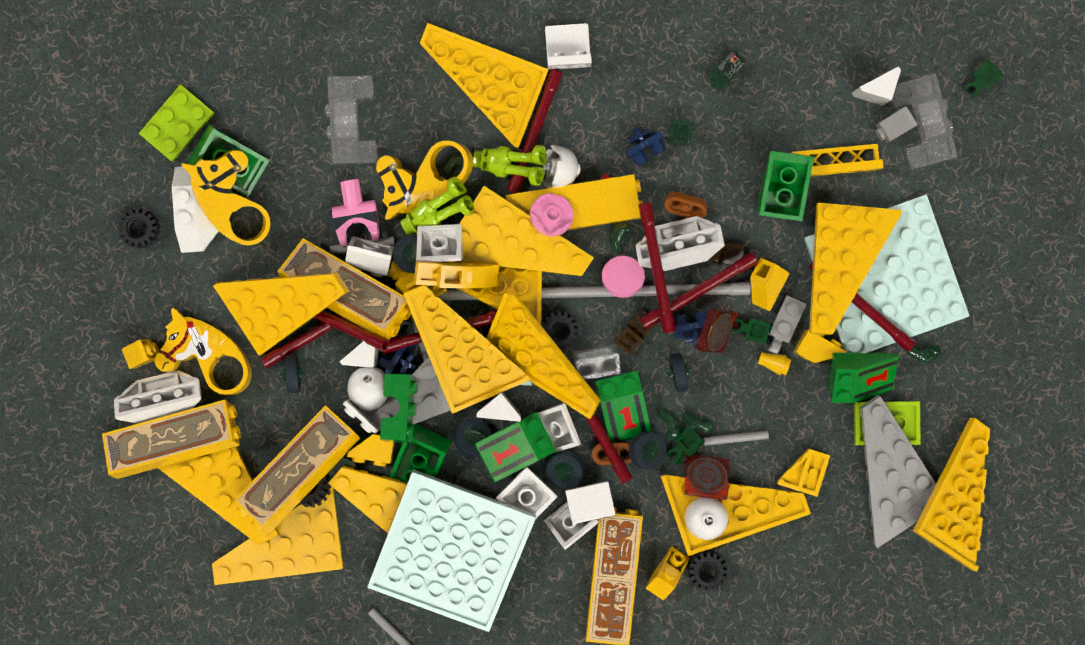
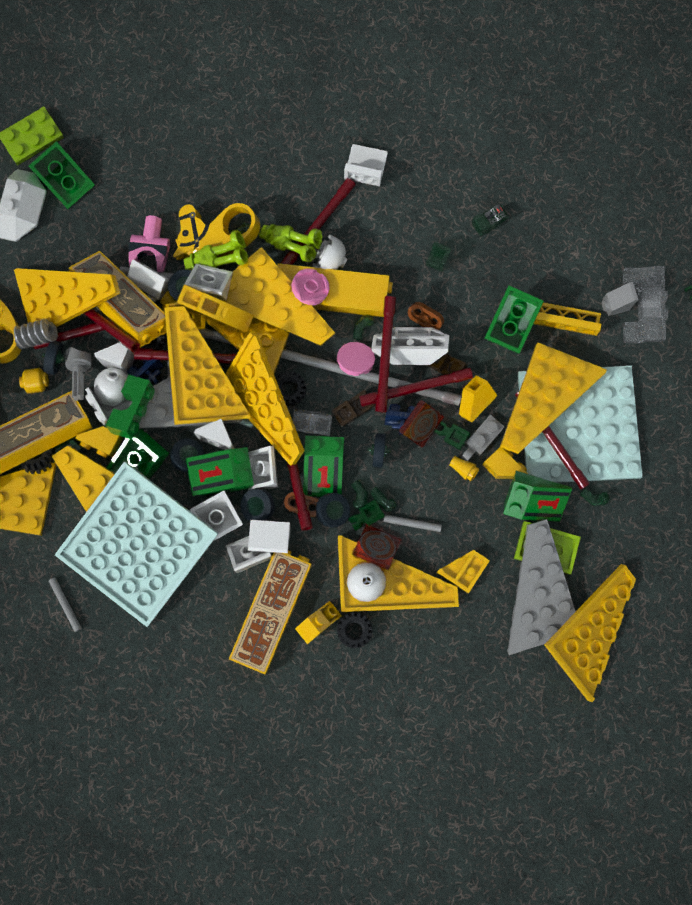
camera: 15 degrees right, 10 degrees down
(212, 189) = (38, 187): yellow animal -> none
(265, 355) = (35, 333): none -> light grey piece
(278, 404) = (34, 380): none -> yellow head
(322, 371) = (78, 363): none -> light grey piece
(343, 114) = (165, 168): clear bracket -> none
(495, 81) = (298, 175): yellow wing -> none
(653, 142) = (403, 256): dark blue hips -> none
(880, 89) = (612, 265): white slope -> none

